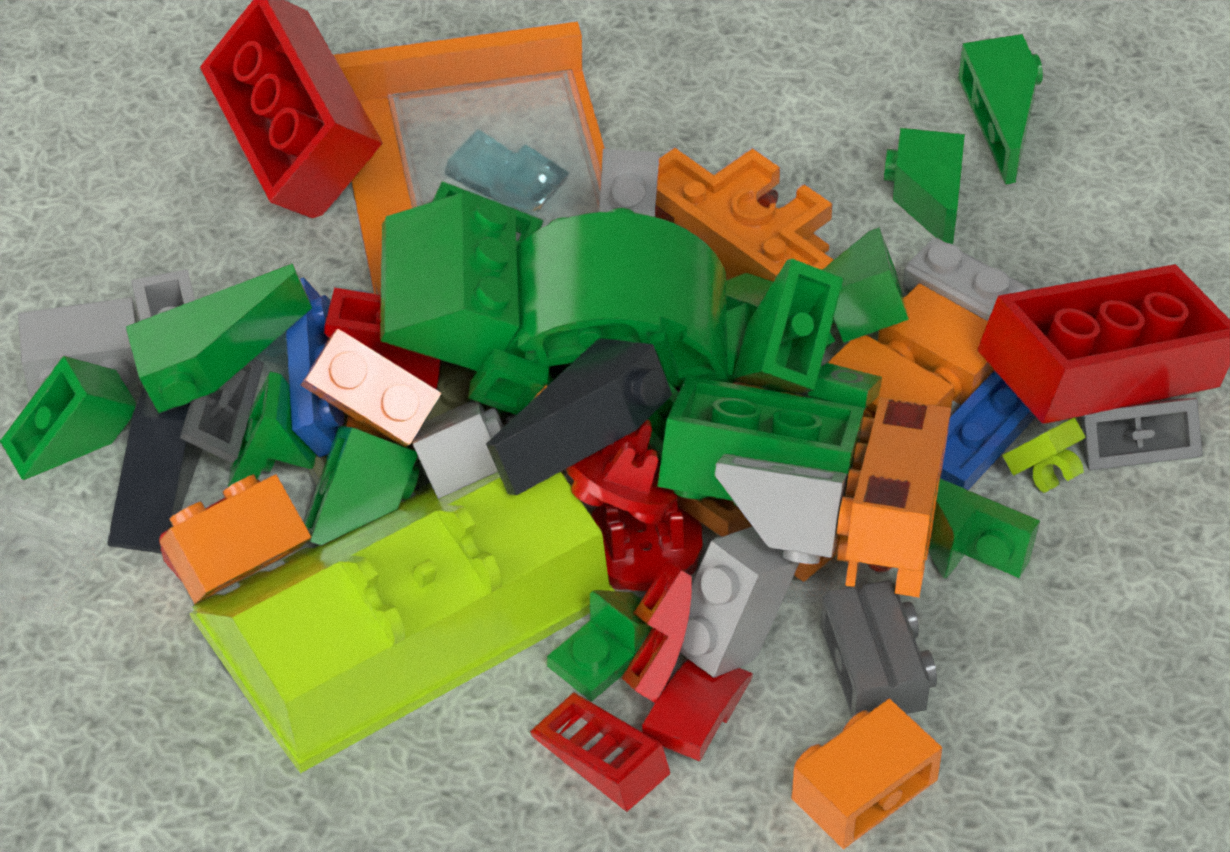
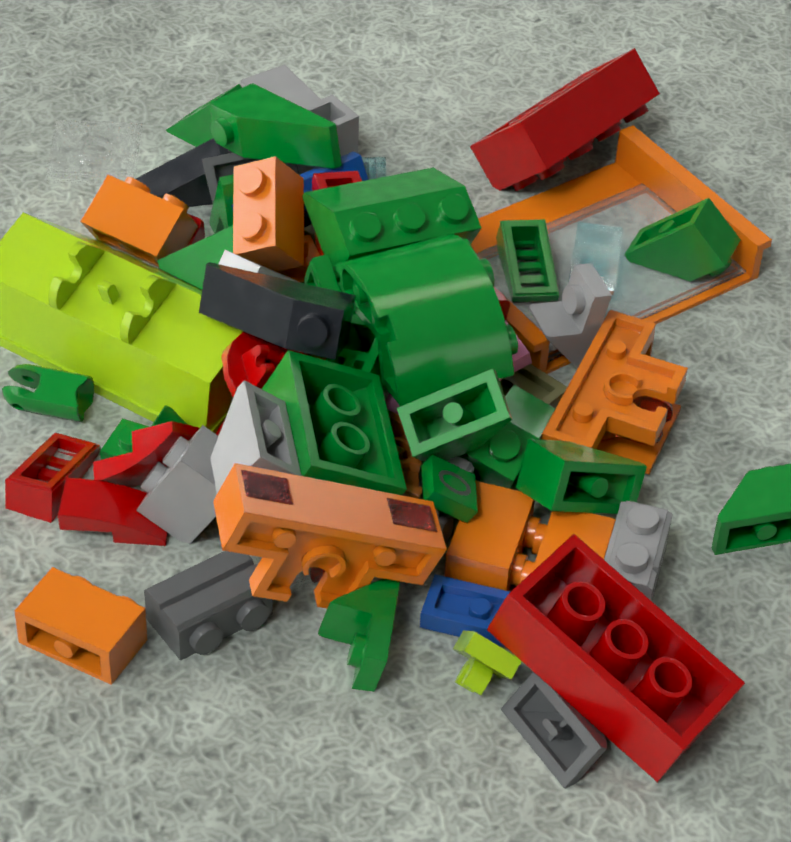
camera: 65 degrees right, 5 degrees down
(473, 708) = (56, 393): none -> green piece
(530, 91) = (686, 243): none -> green slope

